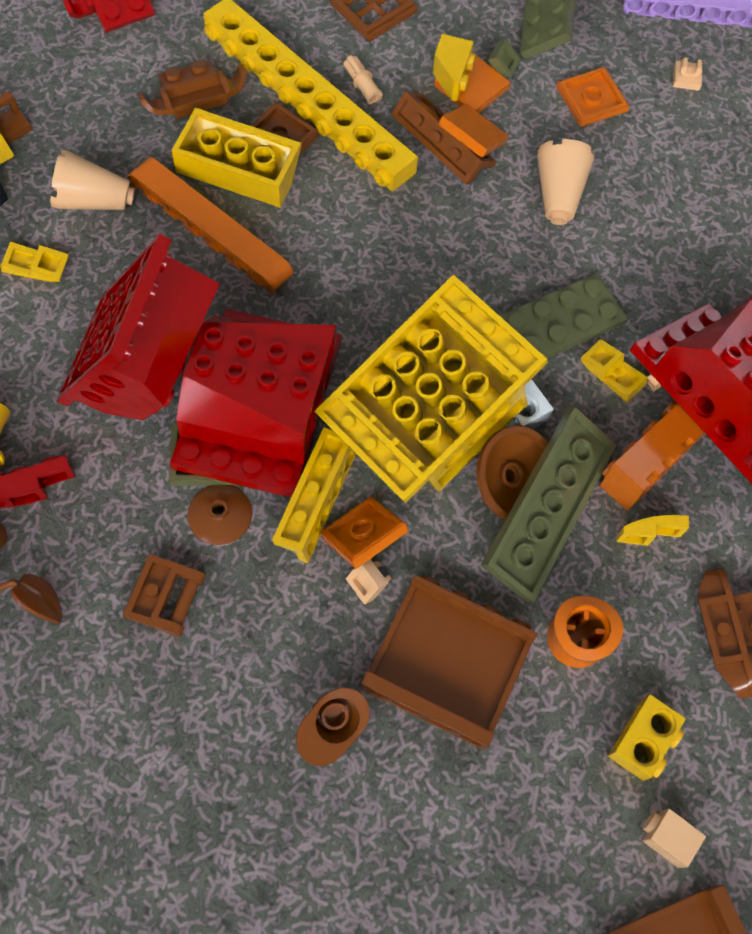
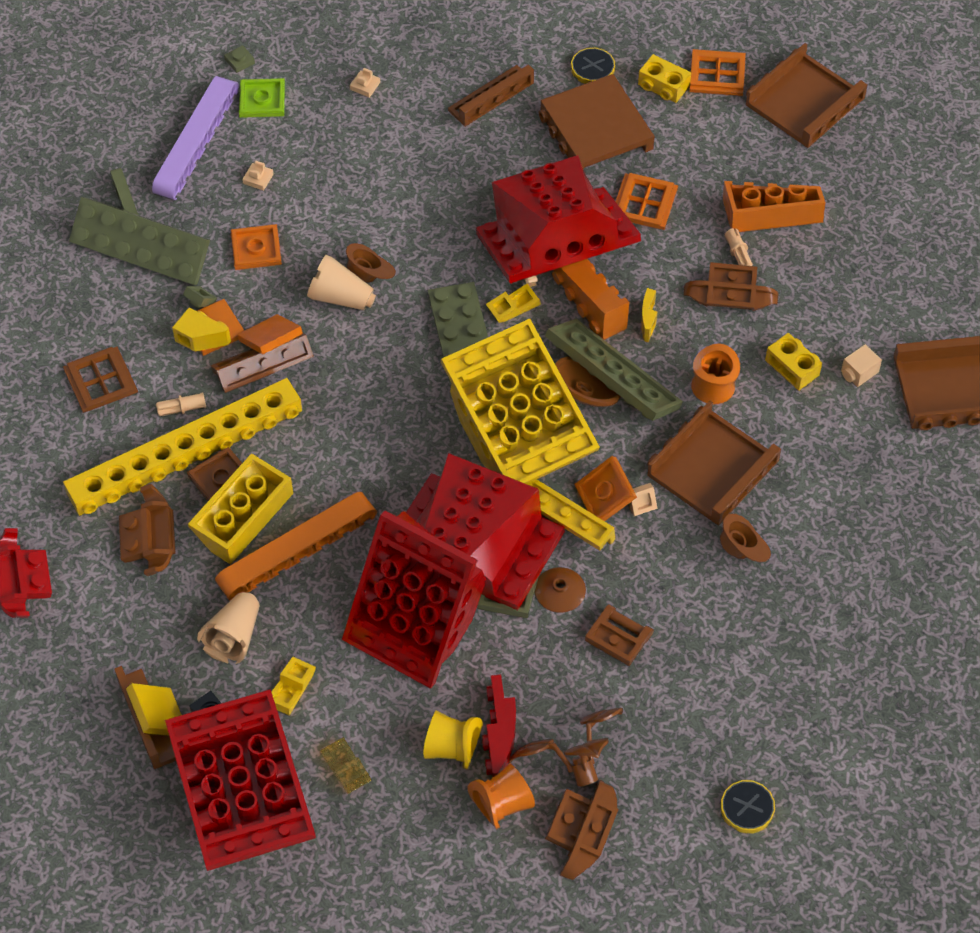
camera: 70 degrees left, 10 degrees down
(606, 199) = (367, 263): none -> dark orange piece

